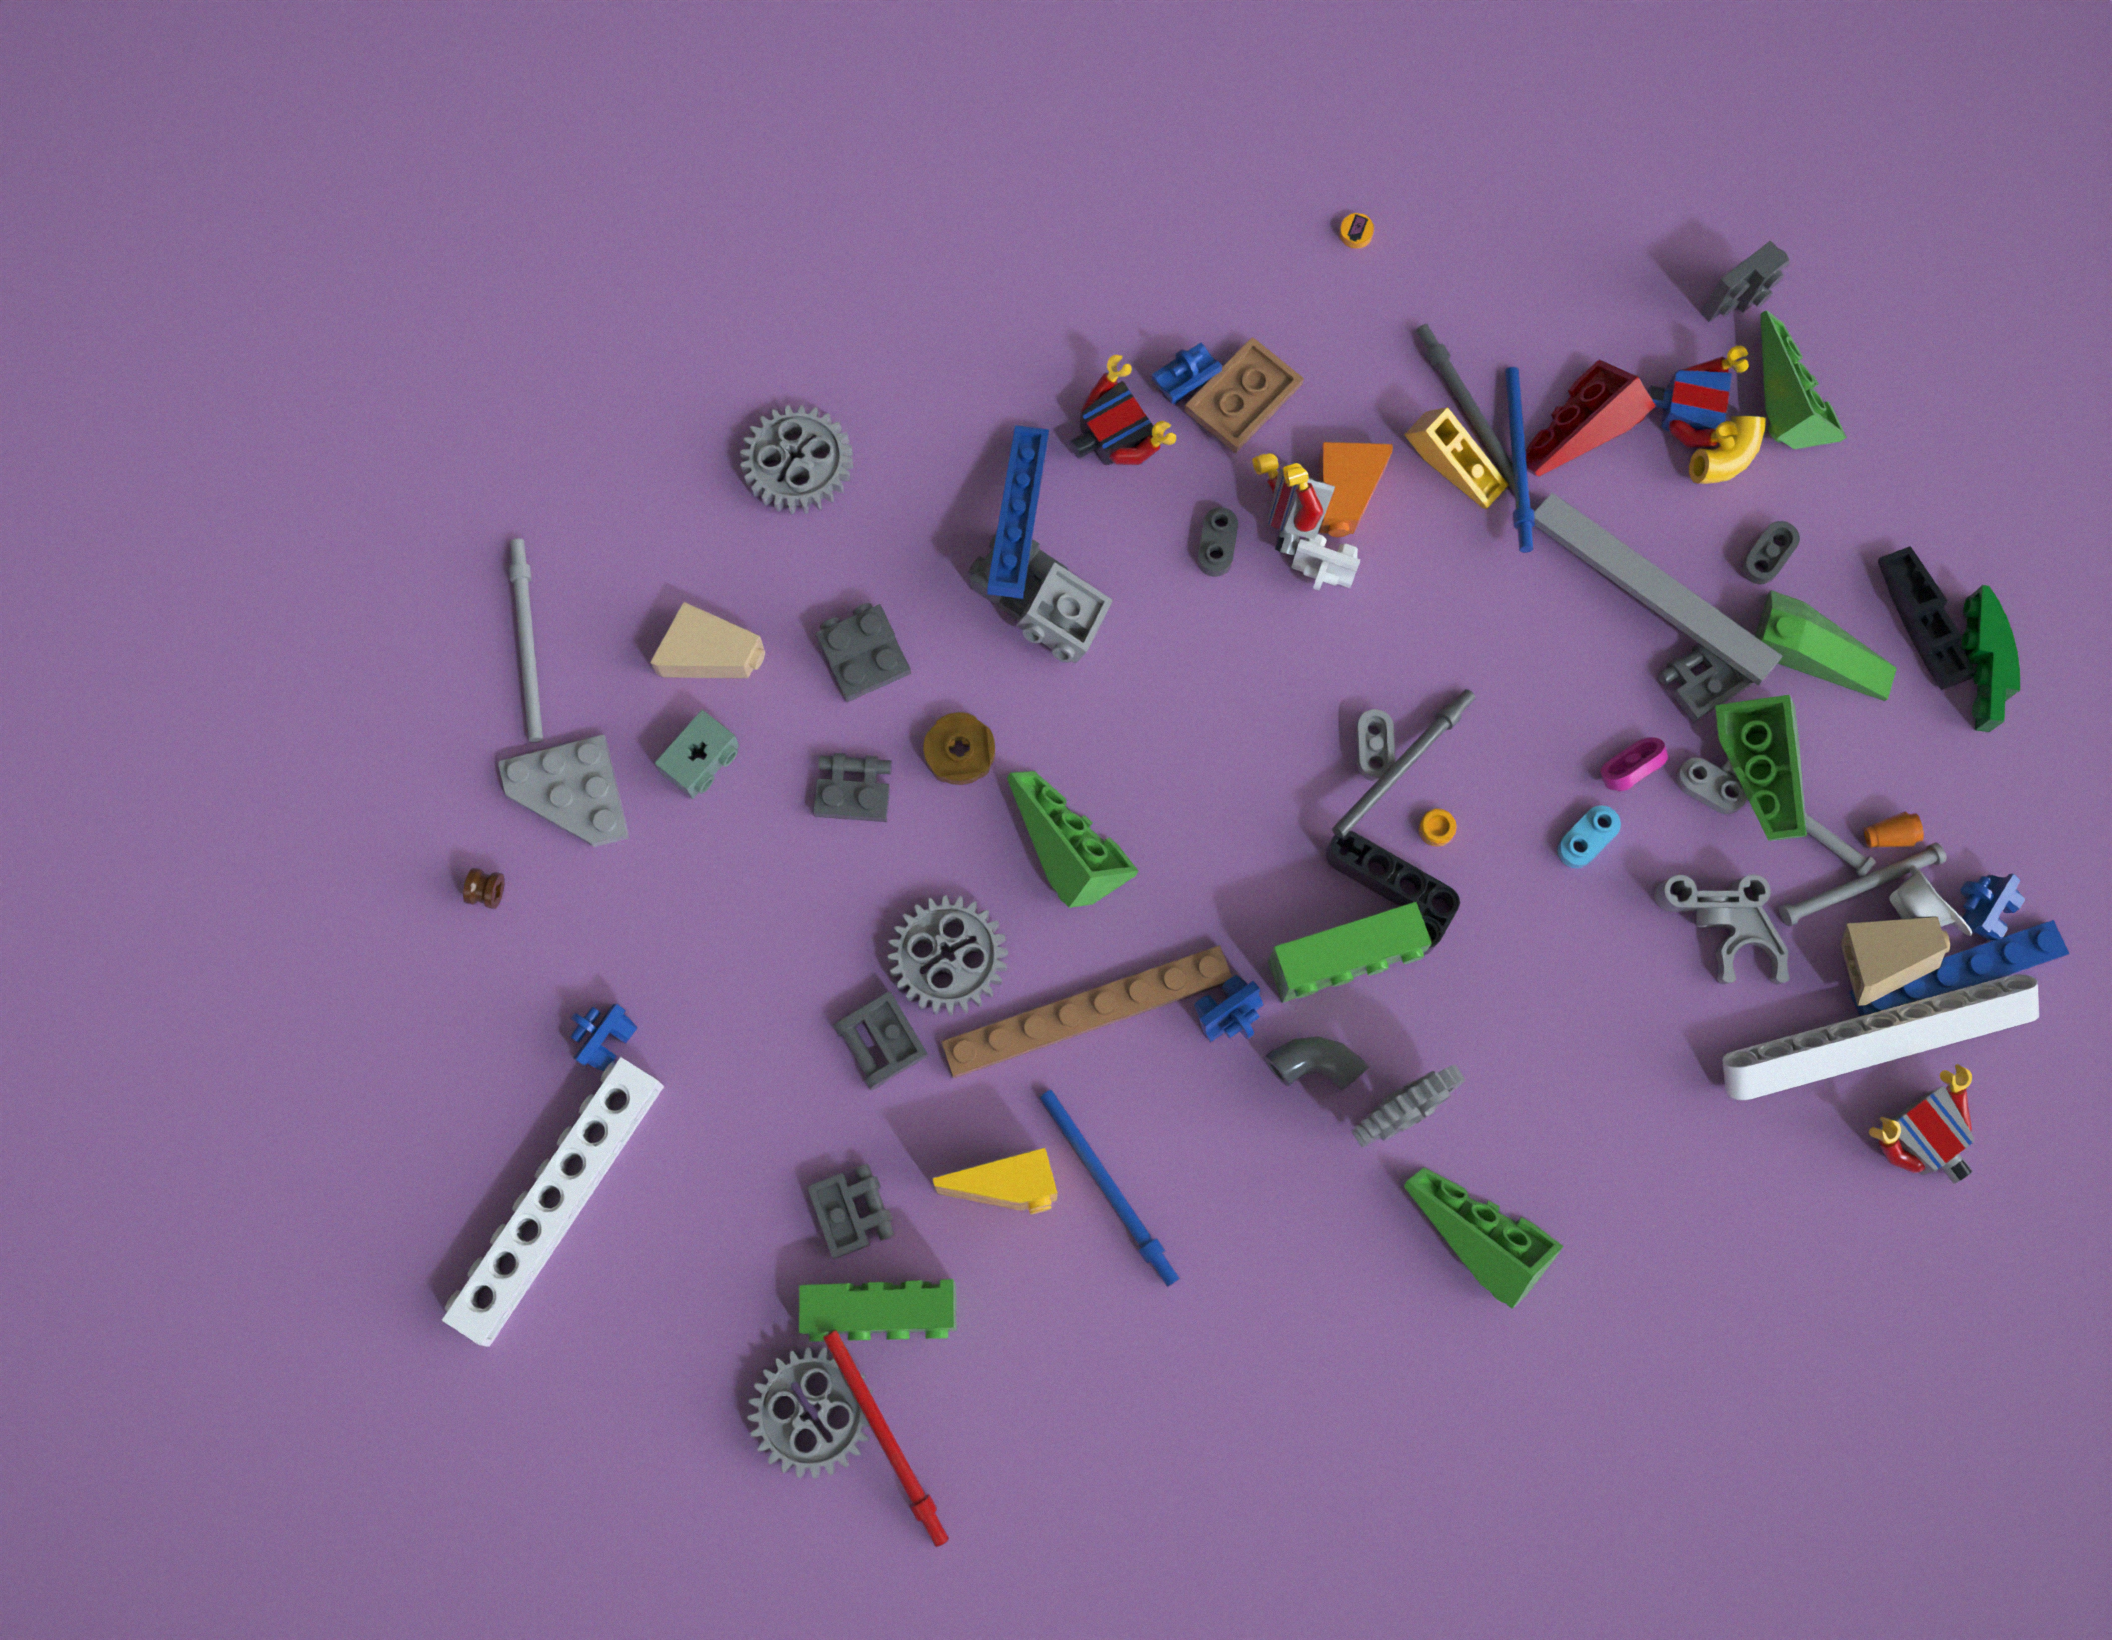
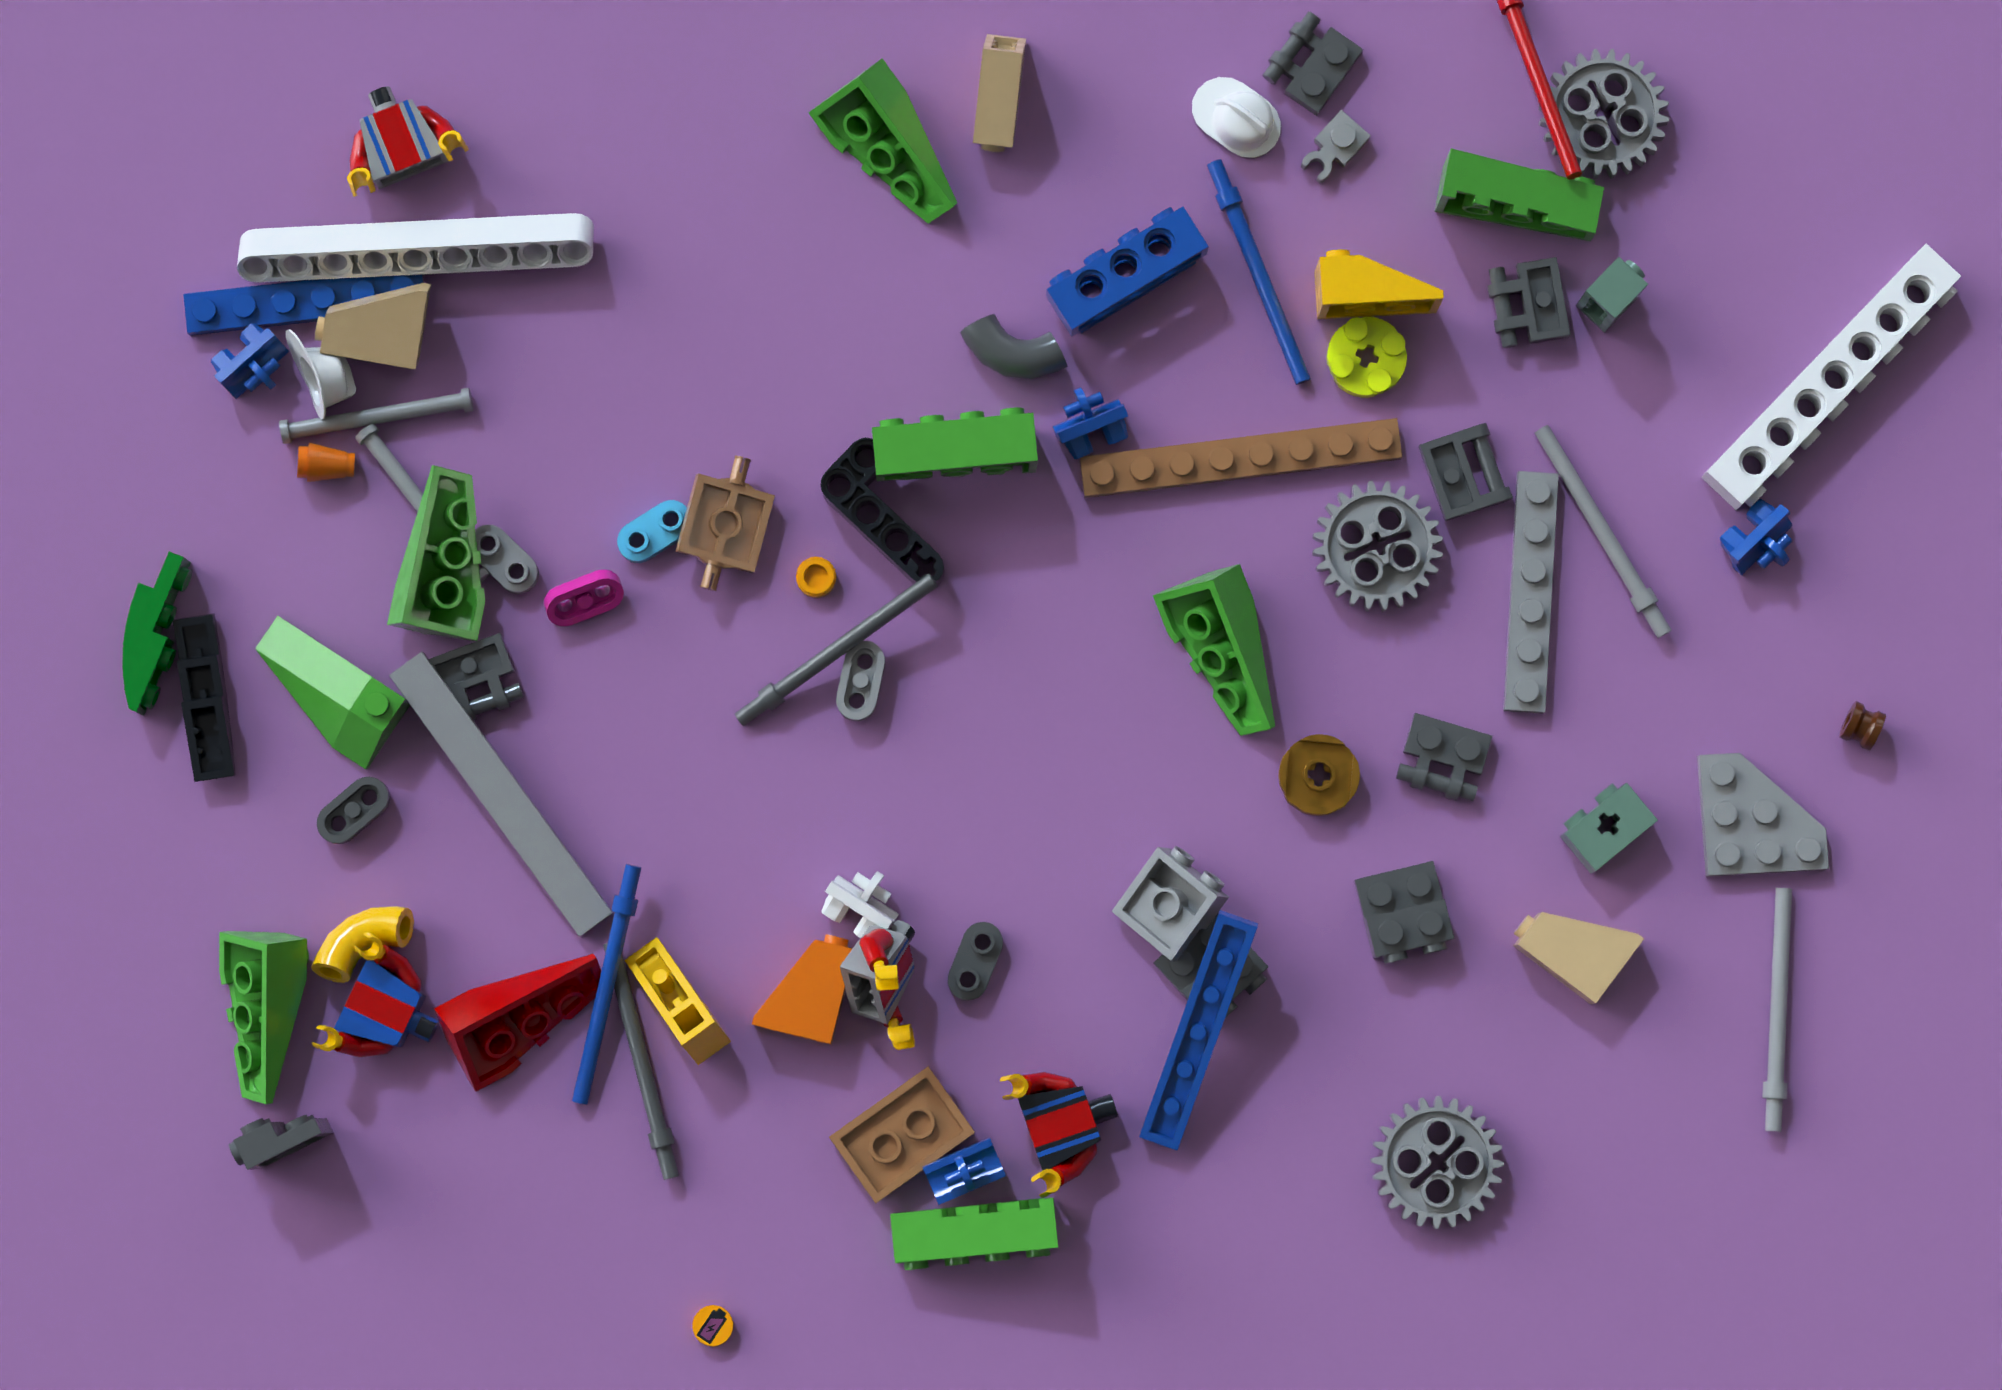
camera: 165 degrees left, 10 degrees up
(699, 962) = (1643, 597): none -> light grey bar
(772, 1230) = (1612, 293): none -> sand green brick
(801, 948) = (1530, 592): none -> light grey plate
(978, 1111) = (1346, 367): none -> neon yellow plate
(1059, 1330) = (1338, 143): none -> light grey plate
(1090, 1398) = (1321, 72): none -> dark grey plate
(1159, 329) = (974, 1231): none -> bright green wedge
(1162, 1334) = (1236, 117): none -> white piece
(1269, 1107) = (1169, 227): none -> blue brick
(1393, 1306) = (999, 92): none -> tan slope
(1408, 1105) = (943, 269): light grey gear -> none
(1531, 851) = (725, 523): none -> medium nougat plate
(1730, 909) = (532, 416): light grey piece -> none

